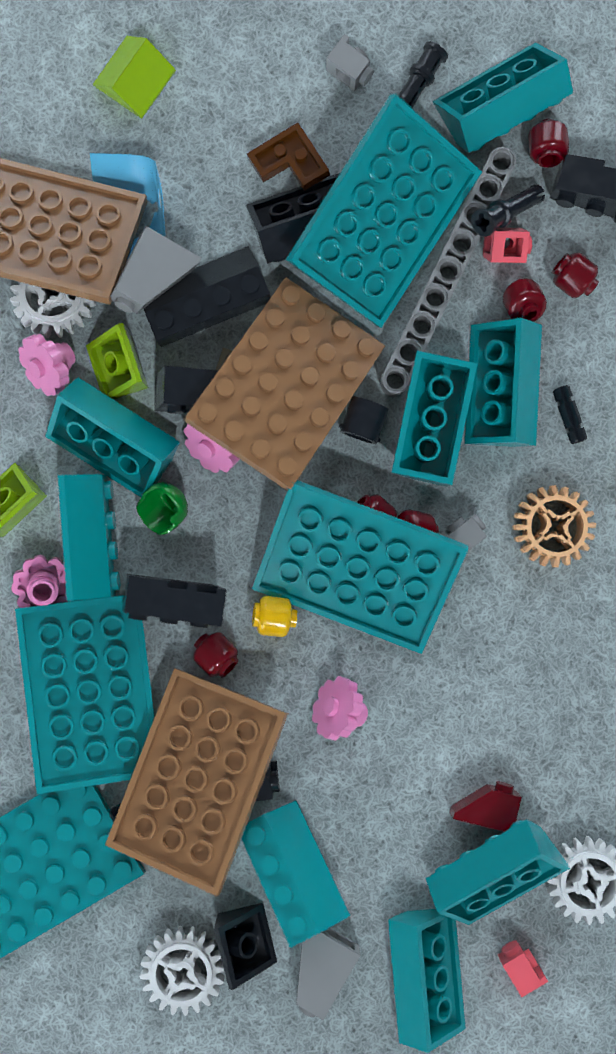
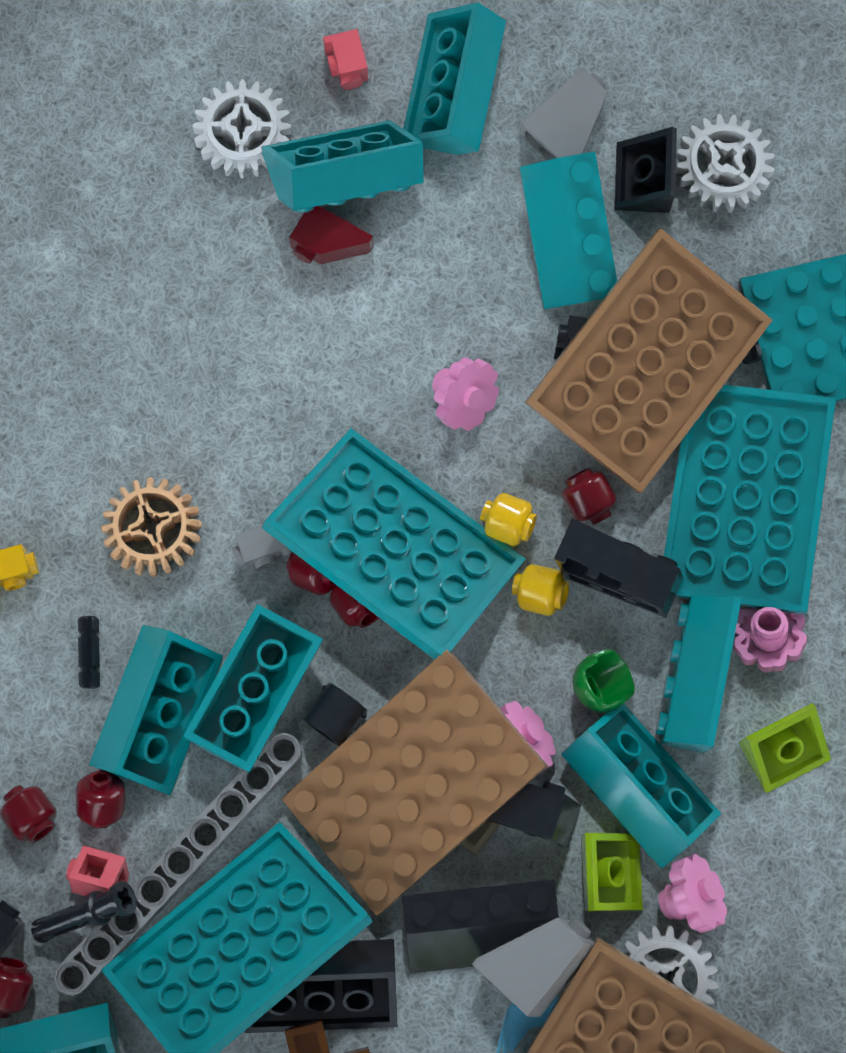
camera: 170 degrees left, 10 degrees down
(232, 567) = (540, 589): none -> yellow head

